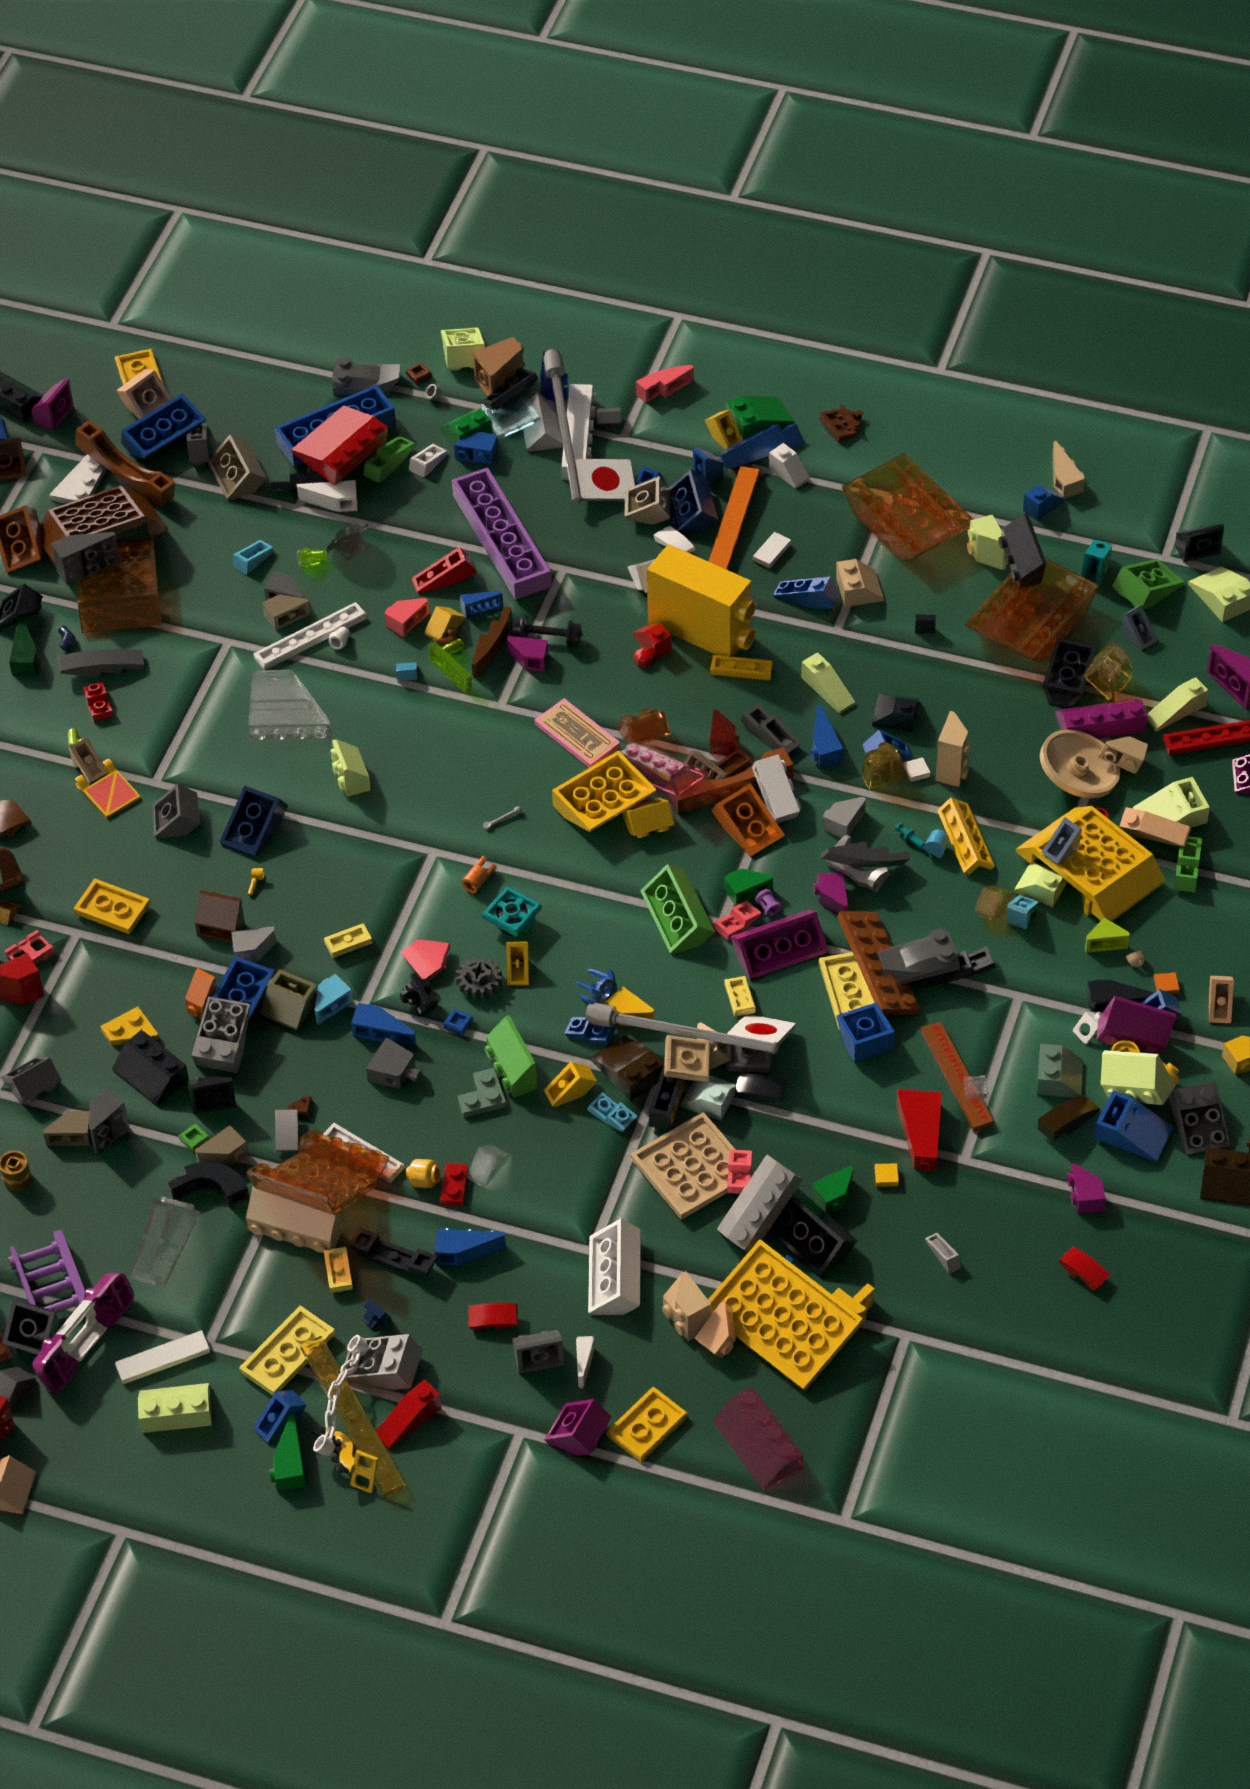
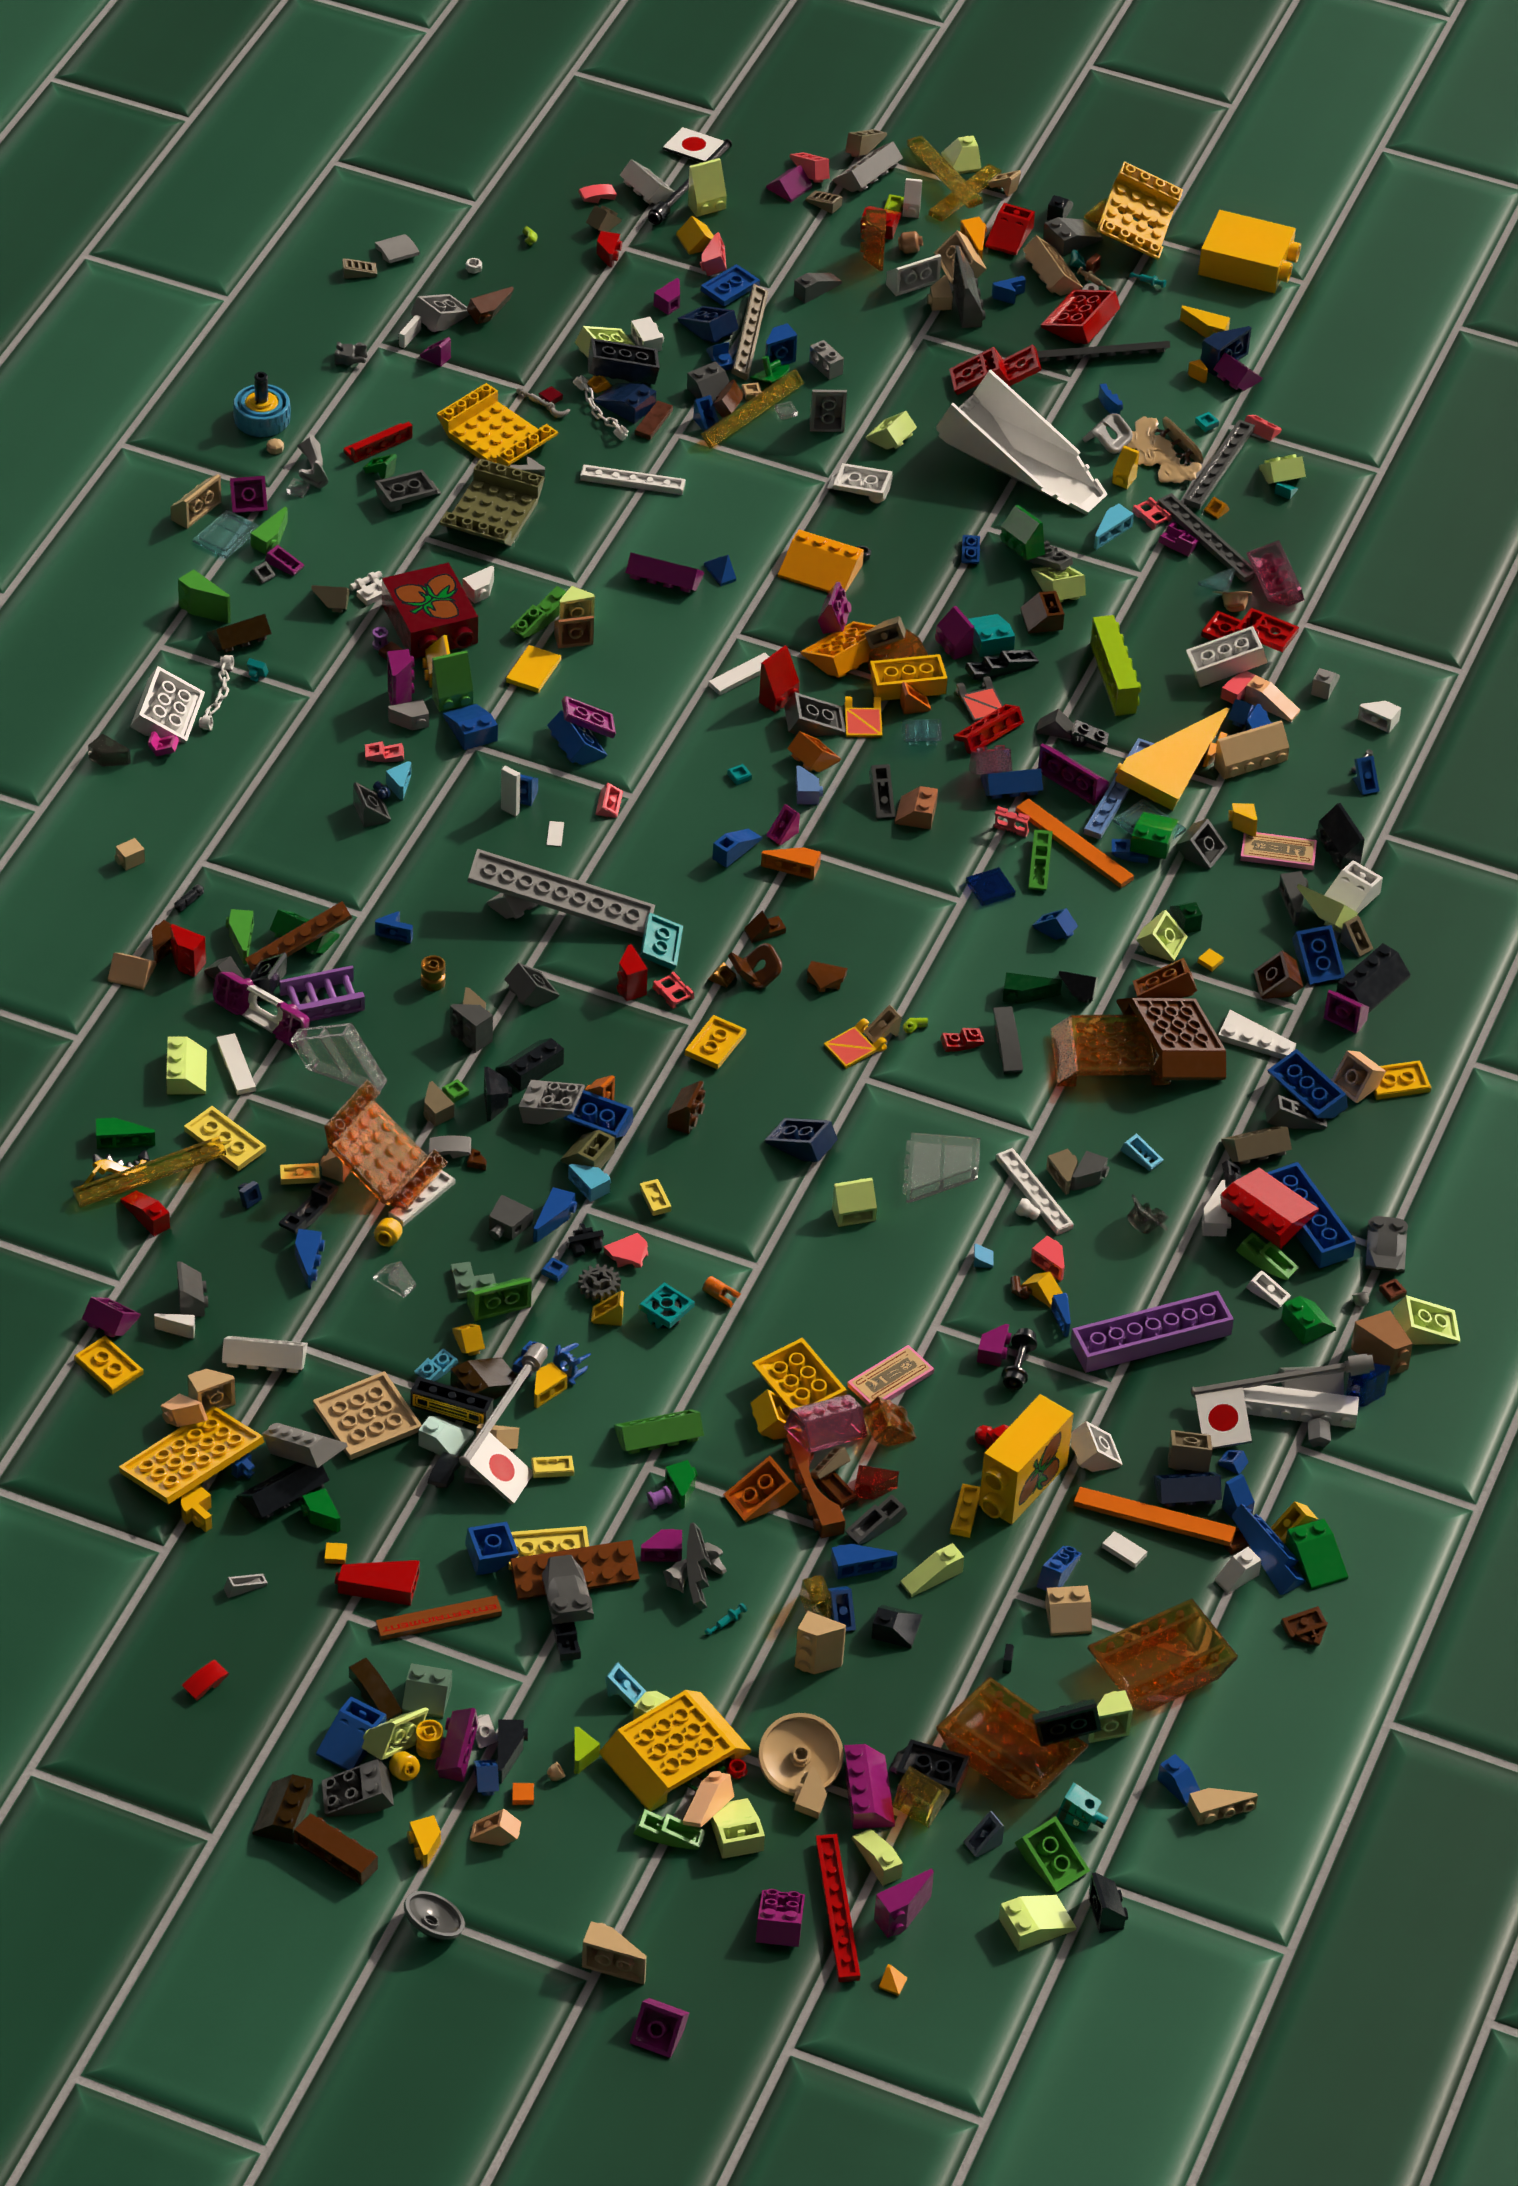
camera: 90 degrees right, 5 degrees down
(68, 638) = (1043, 1021): dark blue arm -> none
(84, 555) = (1112, 1006): dark grey slope -> none
(97, 445) = (1235, 1075): dark orange arch -> none
(126, 1026) = (580, 1053): yellow wing -> none
(176, 813) = (817, 1087): dark grey slope -> none
(210, 1177) = (406, 1100): black arch -> none
(253, 943) = (656, 1130): light grey slope -> none
(256, 875) = (740, 1140): yellow hand -> none
(276, 1414) = (165, 1130): blue slope -> none
(309, 557) = (1134, 1187): clear neon green cone -> none
(324, 1444) = (210, 1173): white piece -> none
(387, 1363) = (200, 1196): light grey slope -> none
(447, 571) = (1106, 1290): red slope -> none
(448, 665) = (992, 1279): clear neon green piece -> none
(454, 1184) = (376, 1255): red plate -> none
(477, 448) = (1278, 1326): blue slope -> none
(488, 825) = (784, 1306): light grey hinge -> none
(490, 644) = (1003, 1313): reddish brown slope -> none
(493, 1315) = (232, 1269): red slope -> none
(513, 415) = (1321, 1349): clear light blue piece -> none
(523, 380) = (1347, 1344): black wing -> none
(664, 382) = (1366, 1480): coral slope -> none
(673, 537) = (1136, 1470): white slope -> none
(687, 1058) = (469, 1405): tan tile -> none
(737, 921) = (643, 1475): coral slope -> none
(738, 1170) = (356, 1440): coral slope -> none
(758, 1439) = (76, 1435): clear pink slope -> none
(776, 788) = (790, 1508): white brick -> none
(780, 943) = (609, 1500): magenta slope -> none
(844, 816) = (757, 1565): light grey slope -> none
(937, 843) = (714, 1632): dark azure brick -> none
(965, 836) = (725, 1652): yellow fence -> none
(975, 1087) = (417, 1624): clear tile -> none
(992, 901) = (641, 1667): clear yellow slope -> none
(1063, 841) = (680, 1708): sand blue slope -> none
(1087, 1190) = (290, 1692): magenta slope -> none

